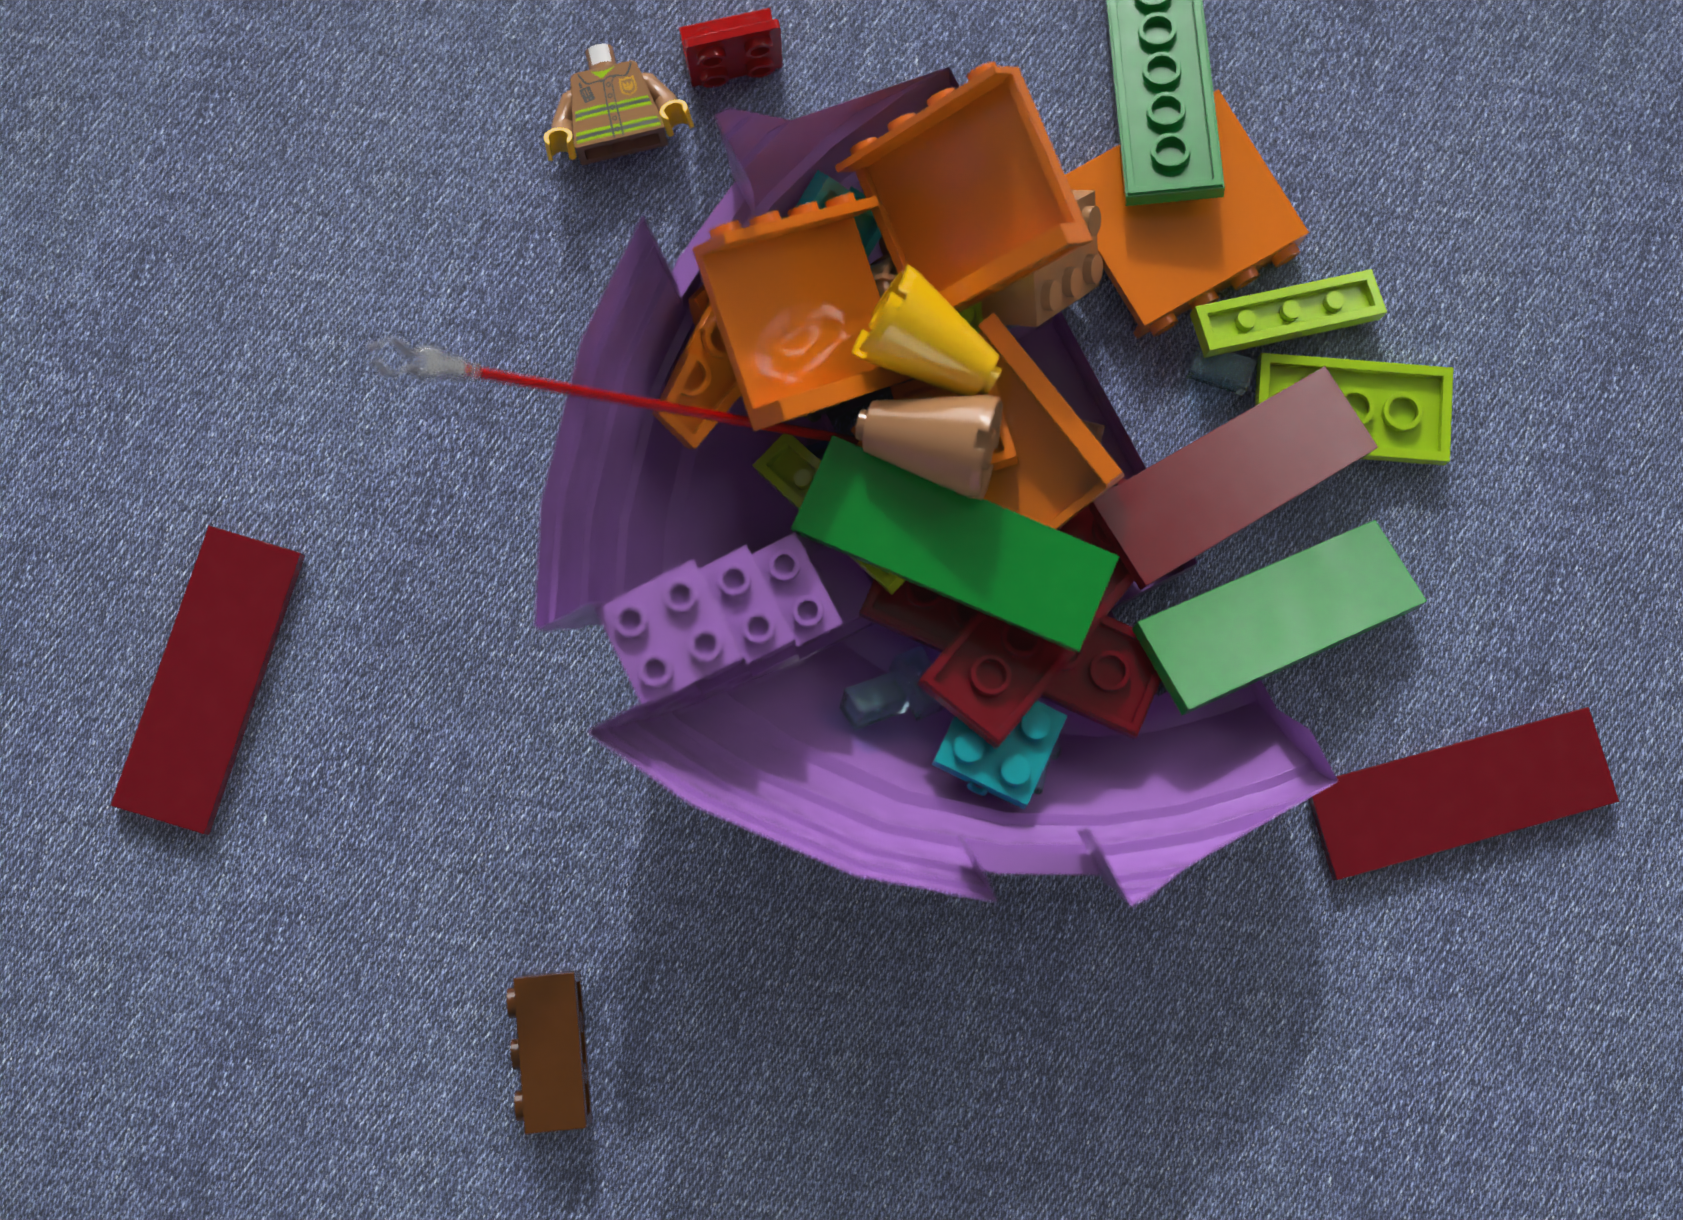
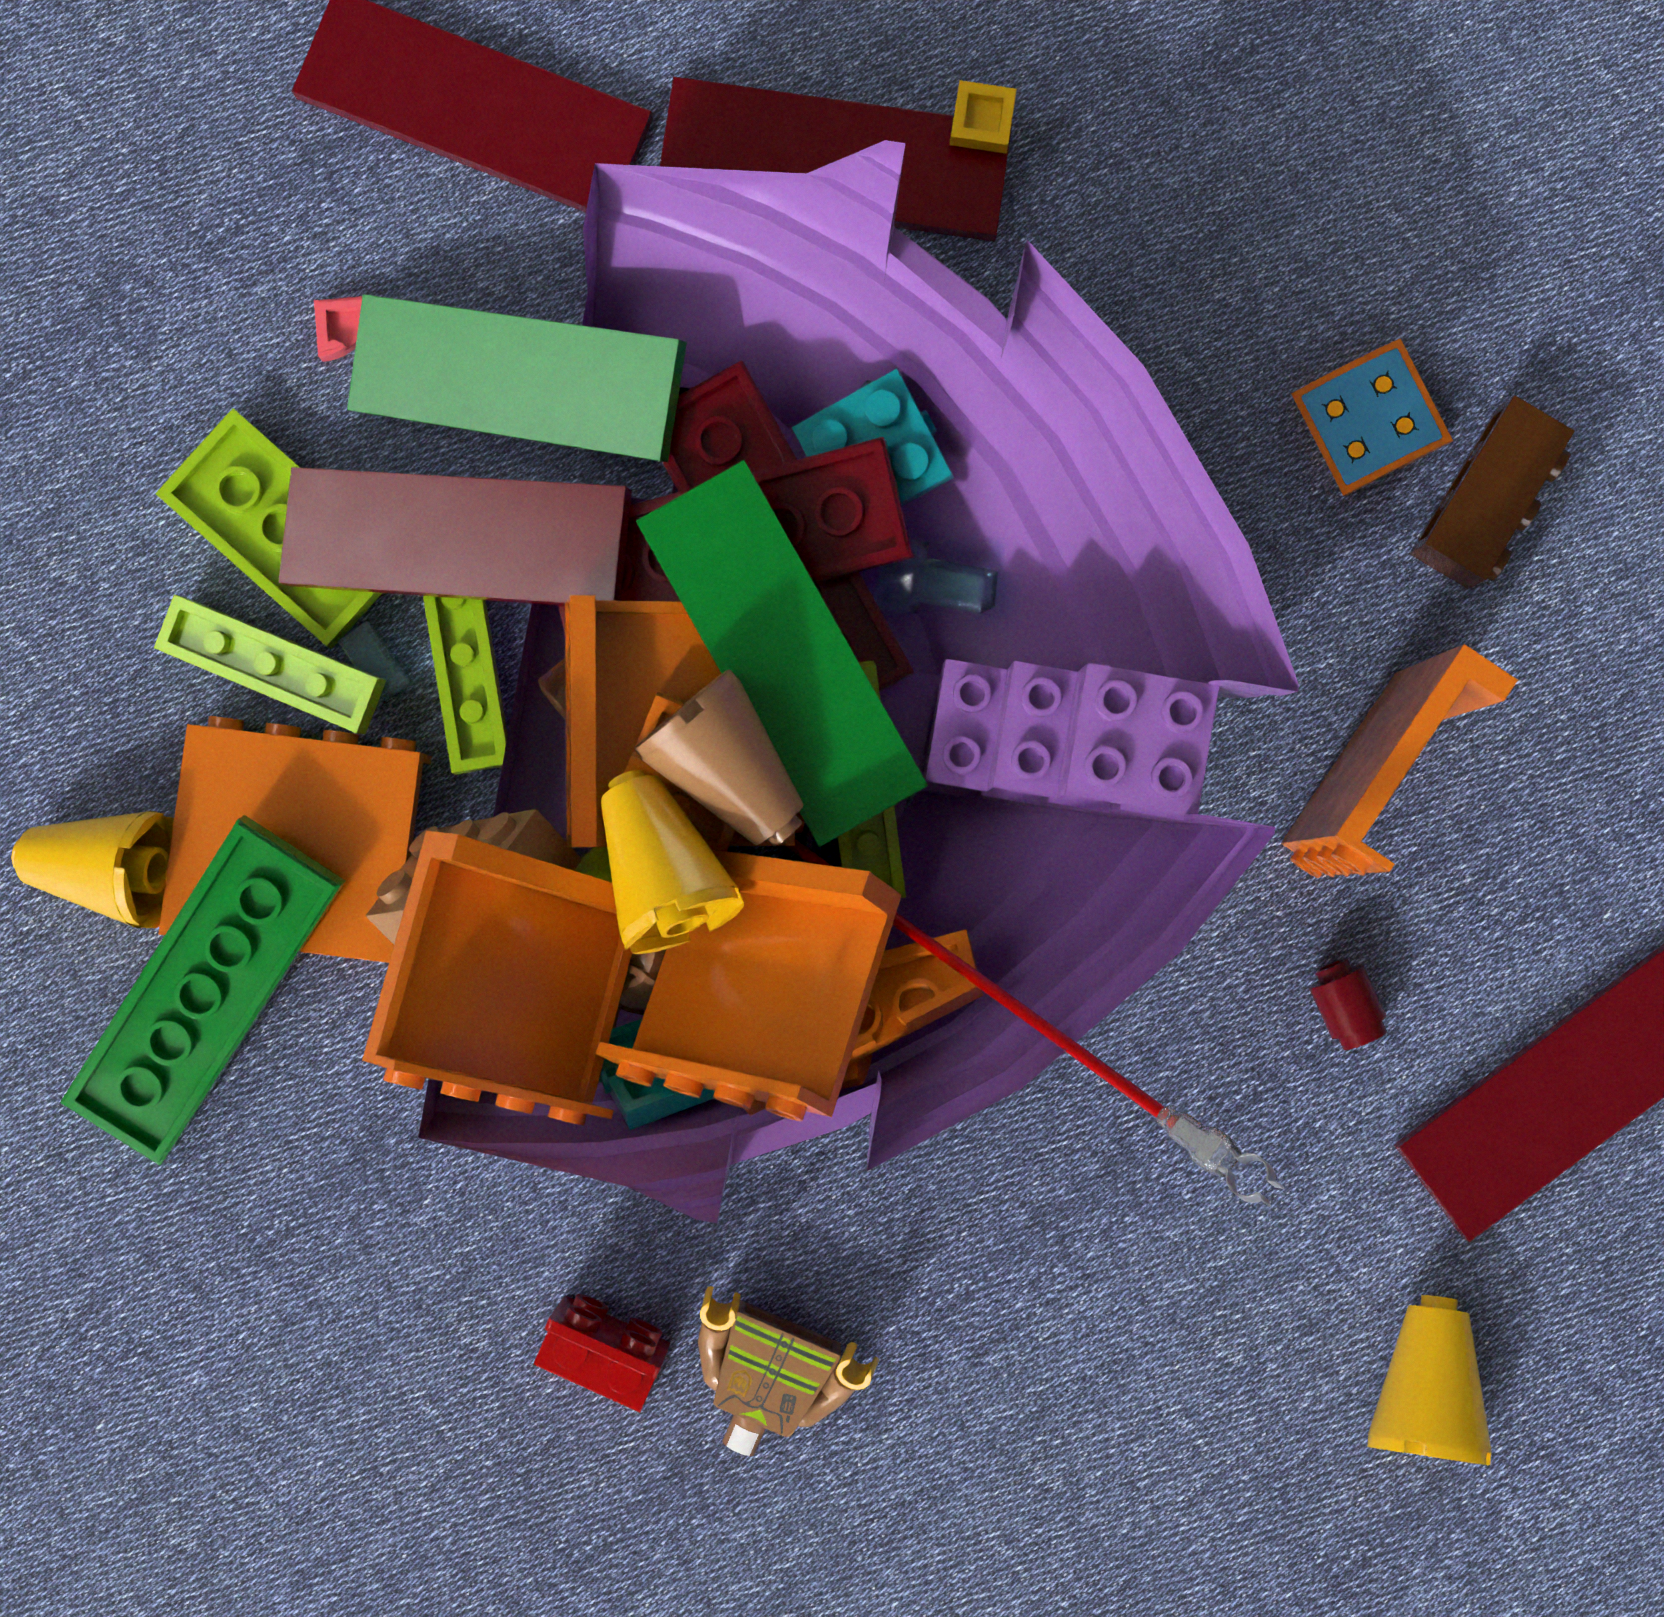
camera: 135 degrees left, 5 degrees up
(166, 407) = (1433, 1388): none -> yellow cone
(402, 621) = (1348, 1004): none -> dark red brick
(498, 782) = (1381, 753): none -> orange panel
(675, 1044) = (1372, 417): none -> dark azure slope
(1106, 1047) = (983, 116): none -> yellow plate
(1148, 396) = (467, 683): none -> lime plate
(1186, 945) = (766, 130): none -> dark red tile
(1290, 106) = (101, 864): none -> yellow cone
(1428, 571) = (336, 326): none -> coral tile

